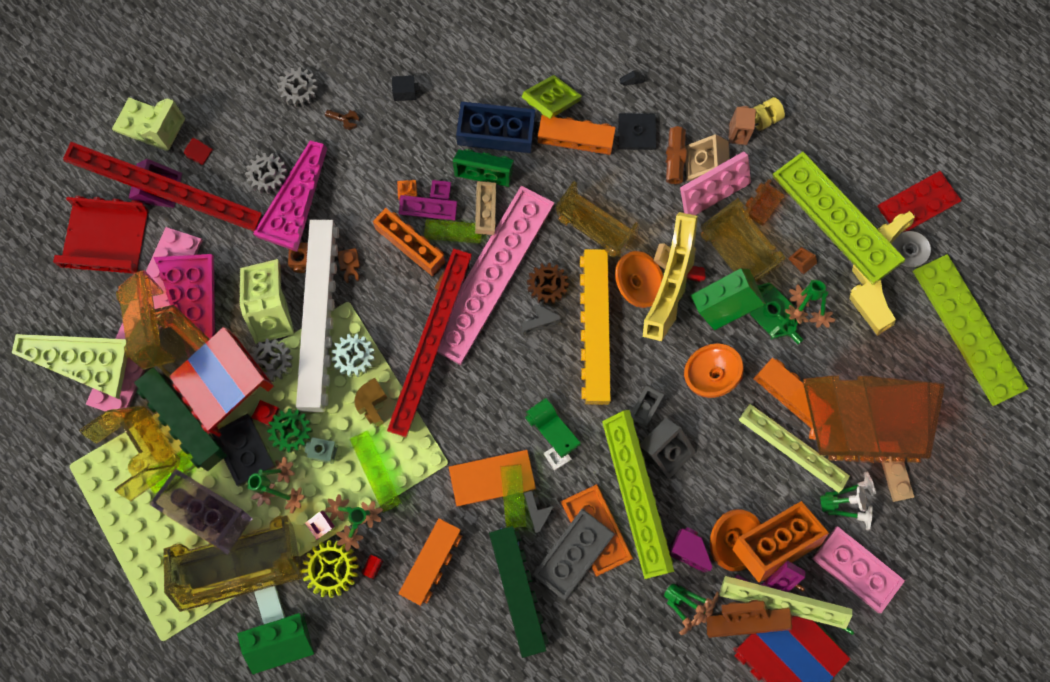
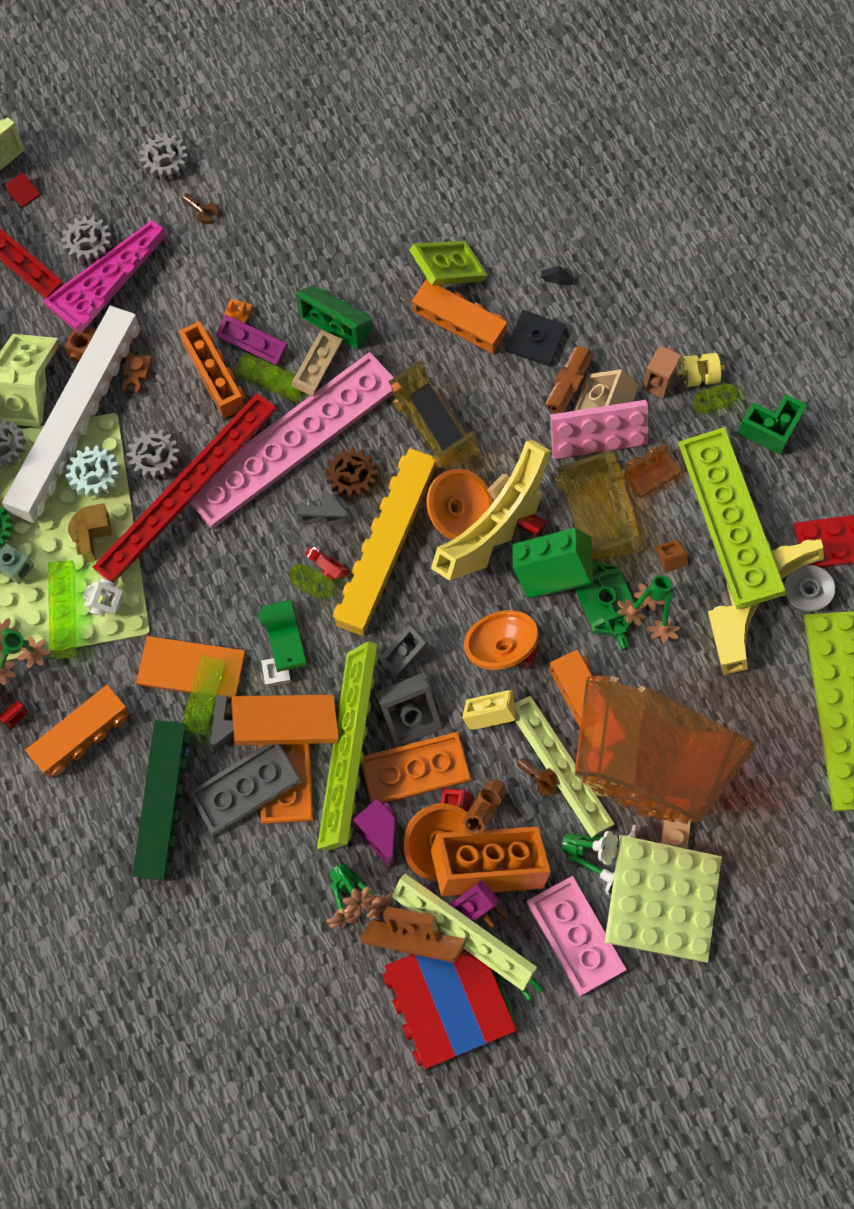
camera: 25 degrees right, 5 degrees down
(397, 317) = (157, 444): none -> light grey gear
(404, 88) = (284, 197): black brick -> none
(405, 451) = (111, 598): none -> white brick
(440, 190) = (275, 325): magenta plate -> none
(495, 127) = (368, 276): dark blue brick -> none
(552, 373) = (313, 576): none -> clear neon green beam
(563, 361) = (331, 567): none -> red plate
(581, 492) = (284, 719): none -> orange tile
(596, 220) = (435, 416): none -> black tile
(691, 490) = (415, 768): none -> orange tile
(726, 425) = (489, 710): none -> light yellow slope
(728, 502) = (457, 797): none -> red slope
(759, 502) = (484, 807): none -> dark orange piece
(781, 128) = (716, 403): none -> clear neon green beam
(789, 463) = (546, 779): none -> reddish brown bar
(838, 138) = (771, 428): none -> green brick
(910, 519) = (663, 899): none -> yellowish green plate

